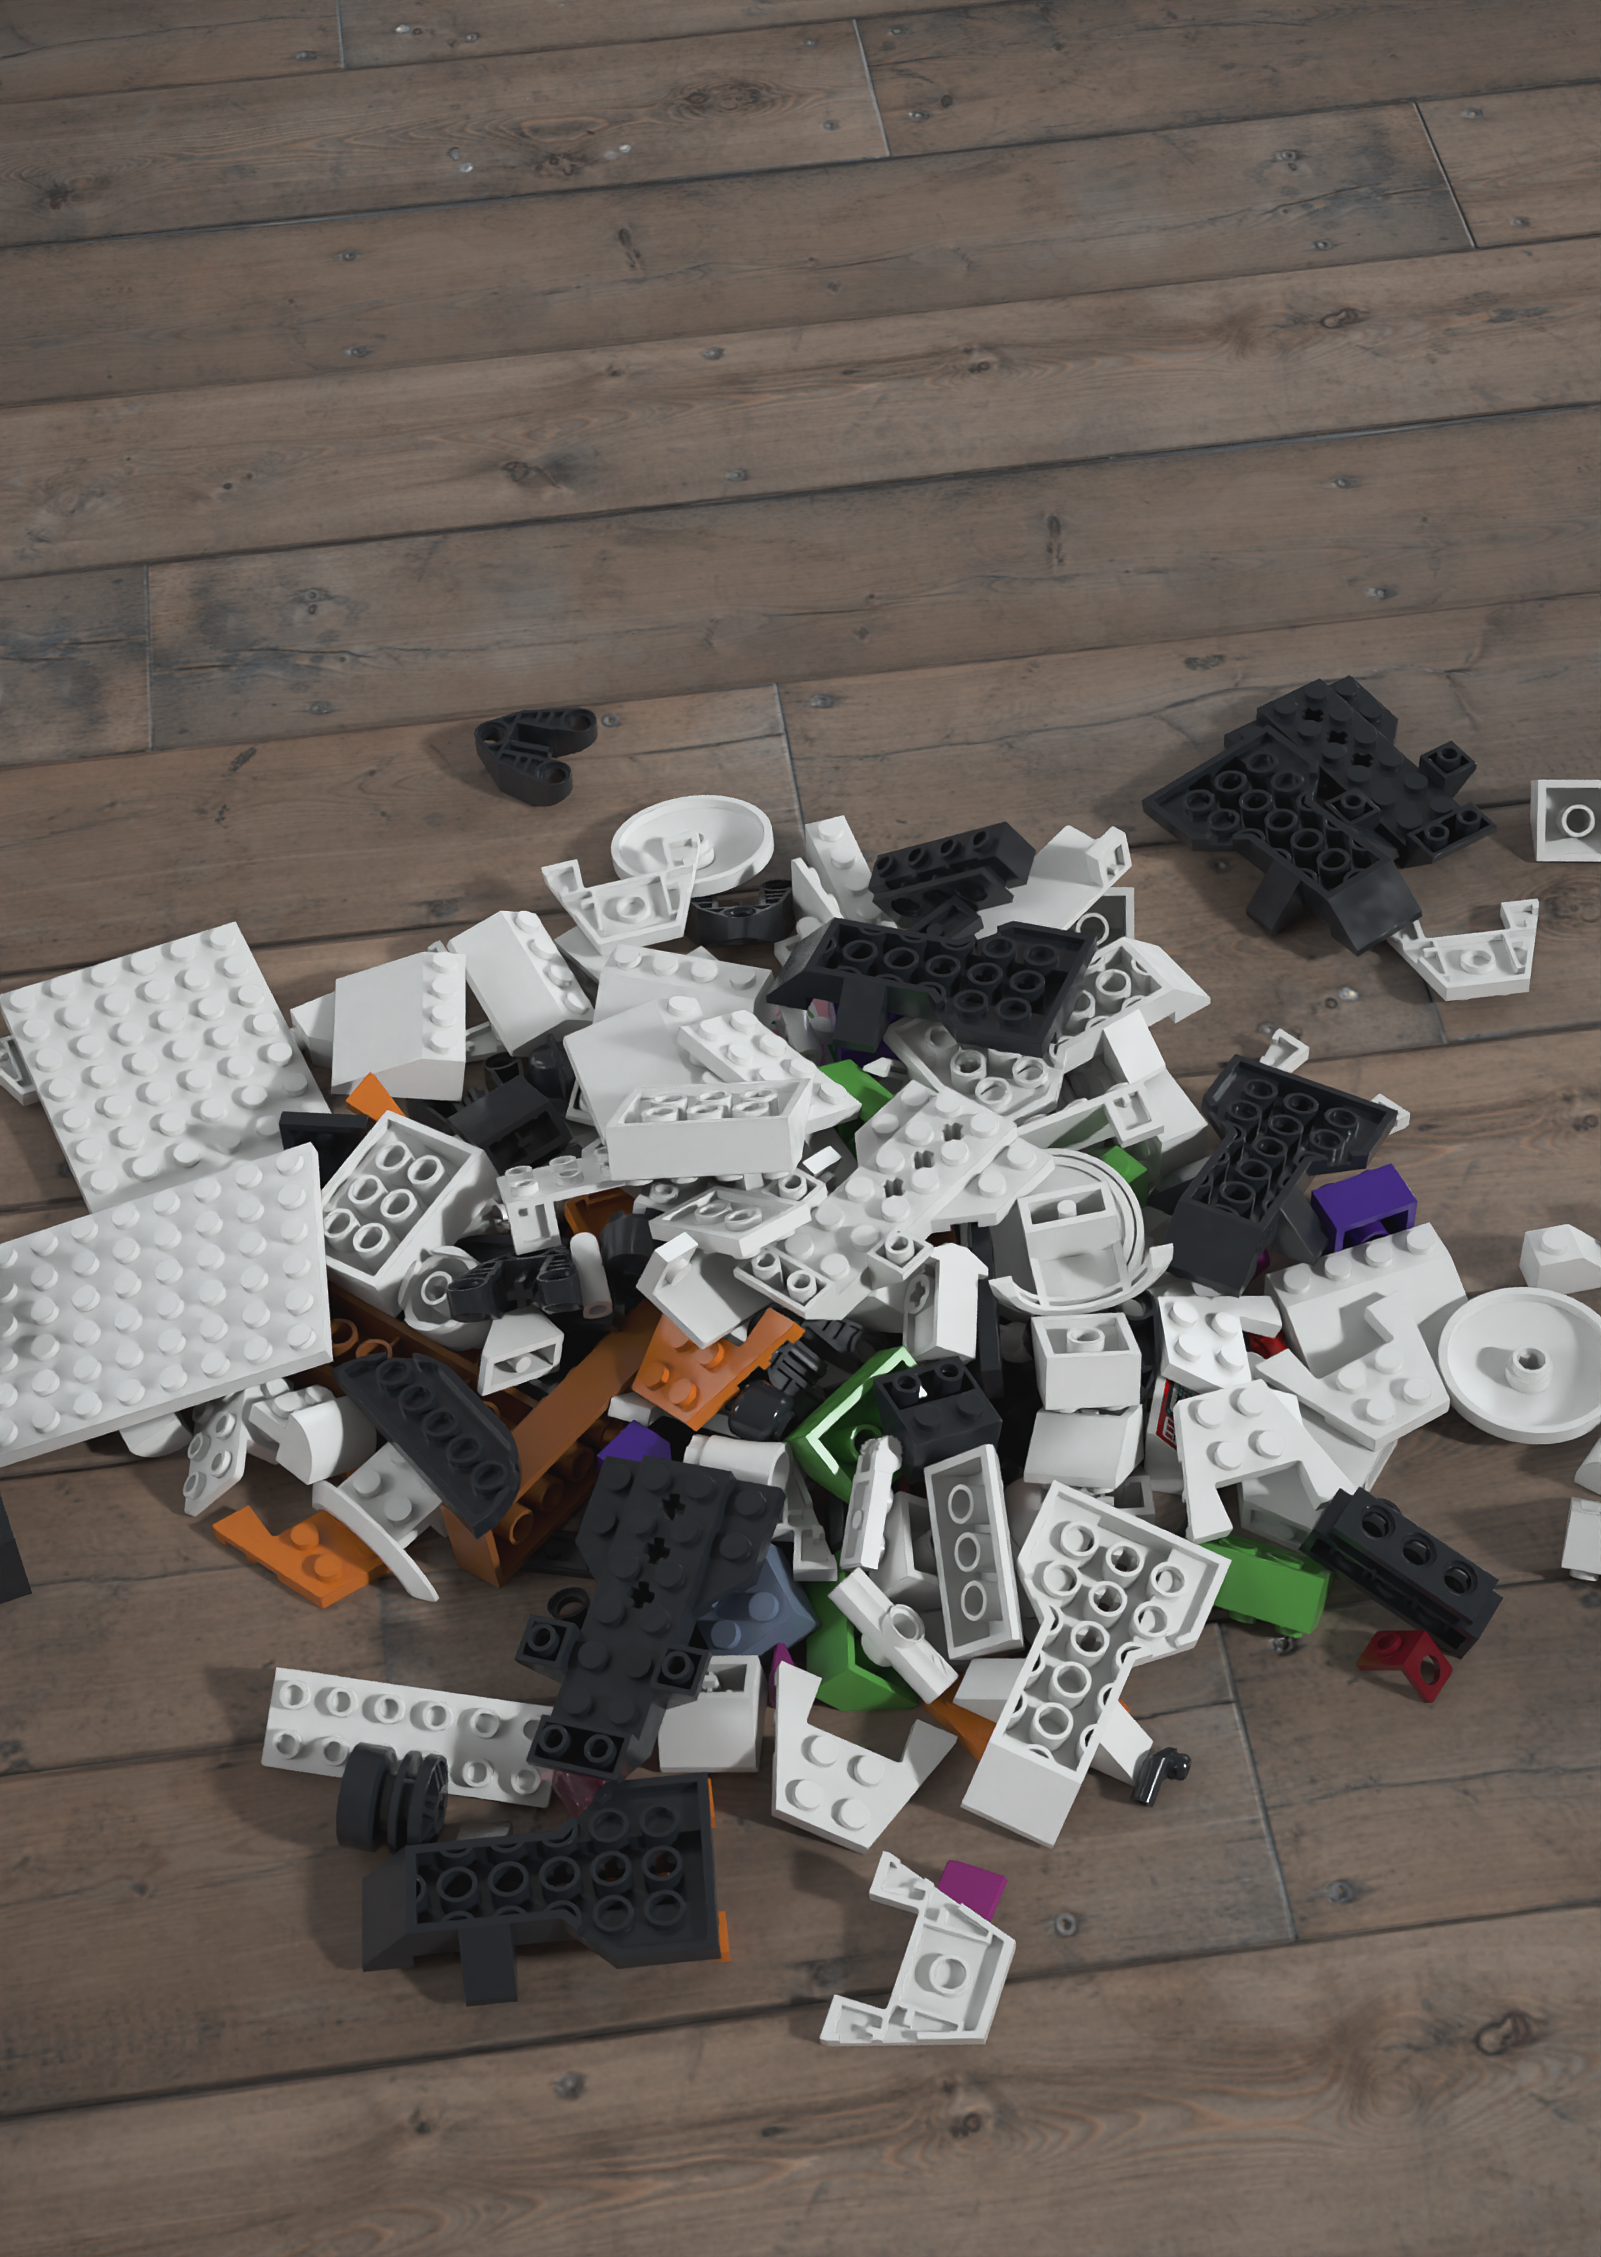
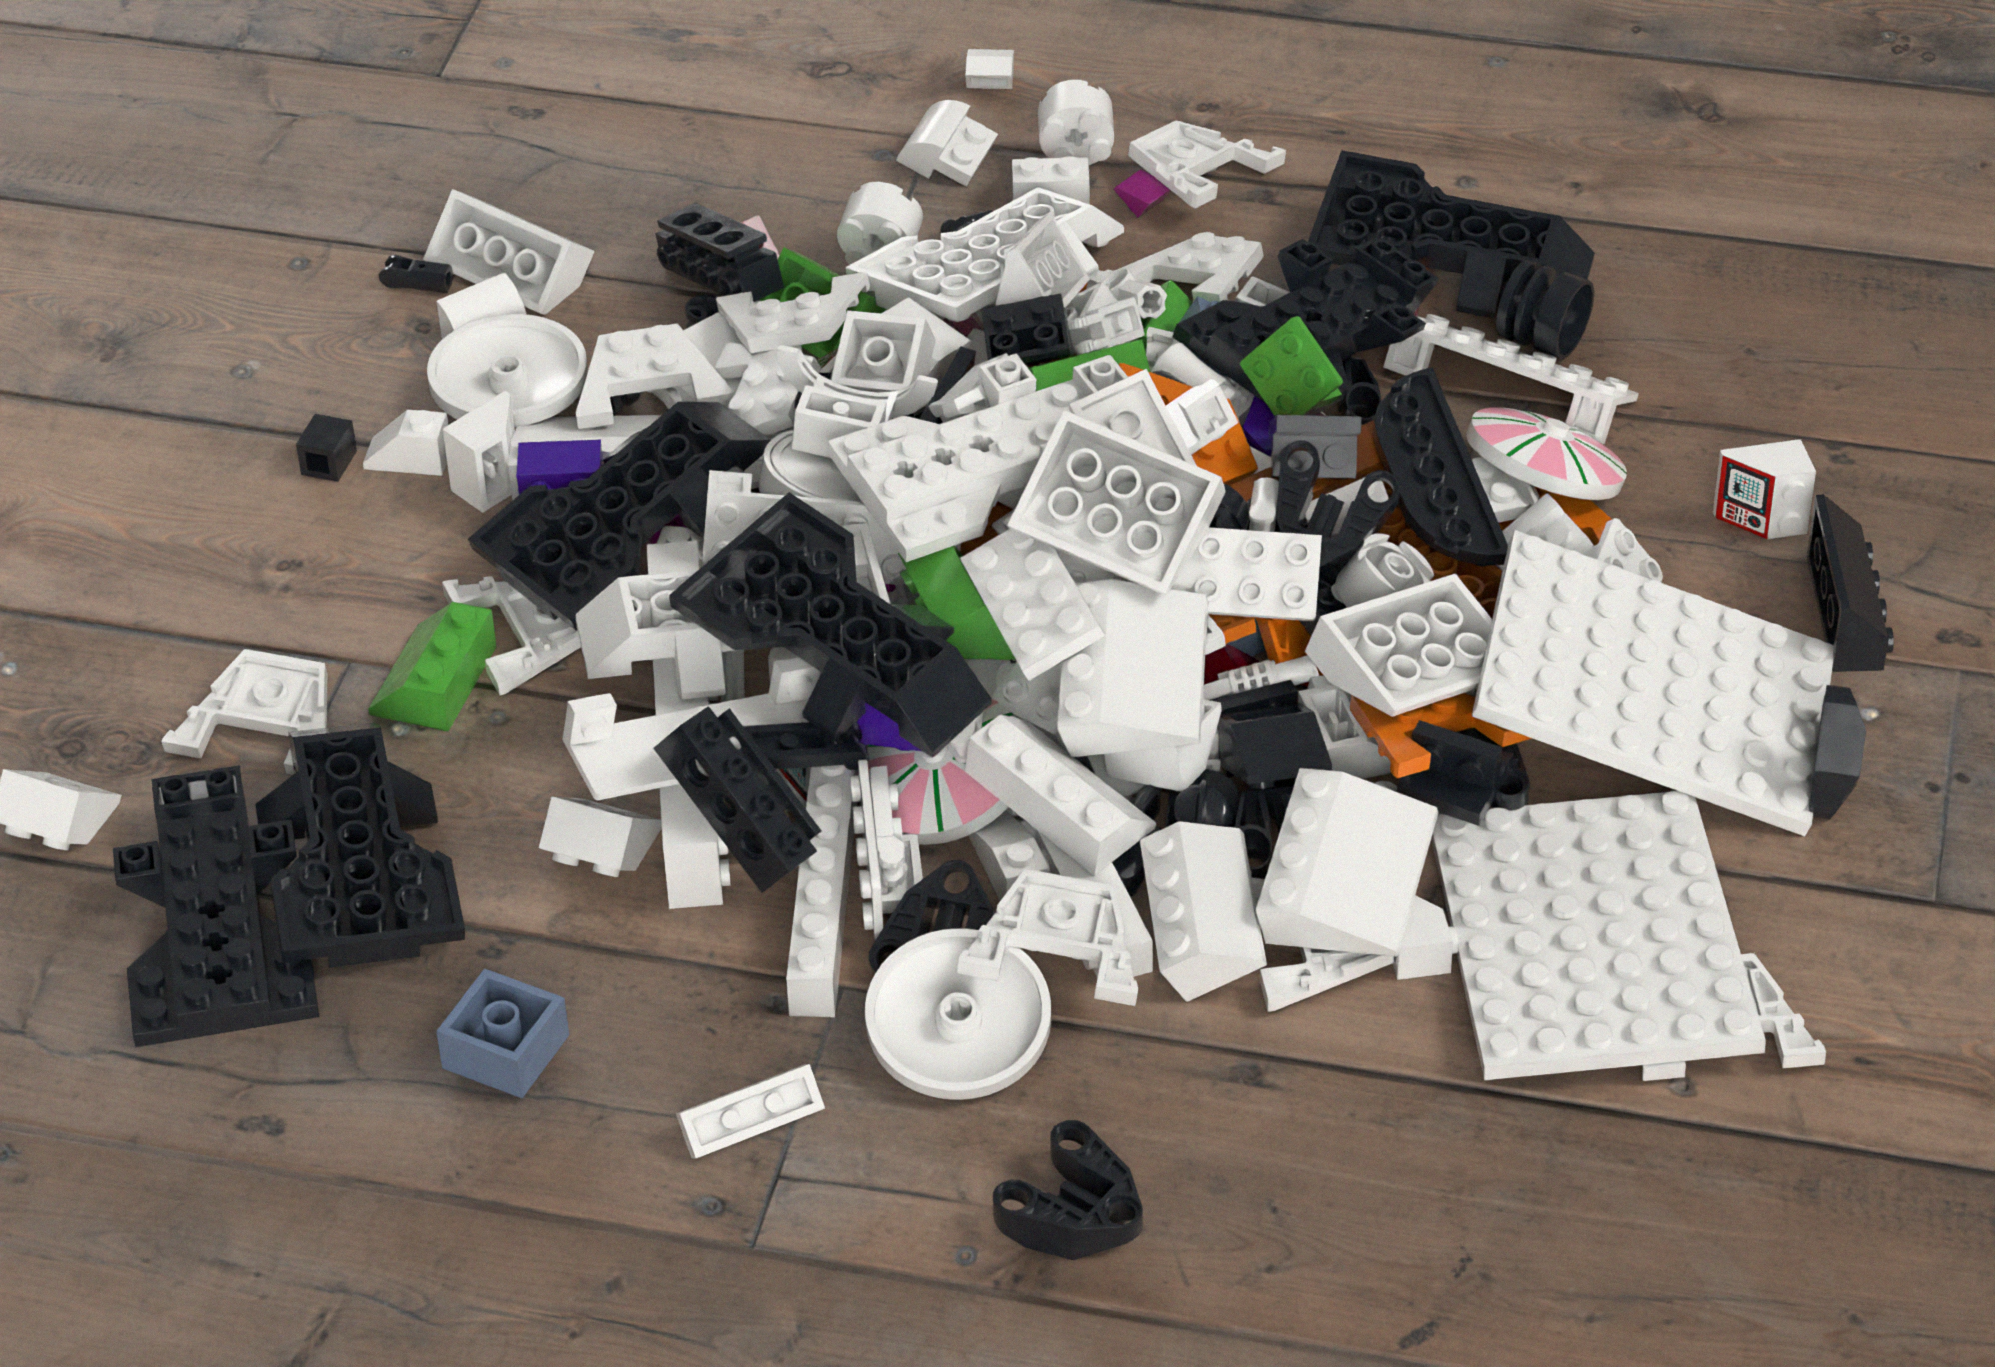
camera: 160 degrees left, 5 degrees down
(80, 1602) = (1765, 488): none -> white slope
(337, 1577) = (1546, 453): none -> dish
(573, 1392) = (1331, 435): none -> bracket
(616, 1457) = (1292, 371): none -> bright green bracket
(825, 750) = (750, 1111): none -> white plate
(1052, 734) = (503, 1033): none -> sand blue brick
(1094, 1872) = (1059, 175): none -> white slope
(1099, 1948) = (1076, 122): none -> white brick
(1249, 1694) = (875, 219): none -> white brick
(1258, 1899) = (947, 143): none -> white brick
(1282, 2072) = (989, 69): none -> white piece
(1352, 1033) = (438, 667): none -> bright green slope
(1470, 1230) = (479, 453): none -> white slope

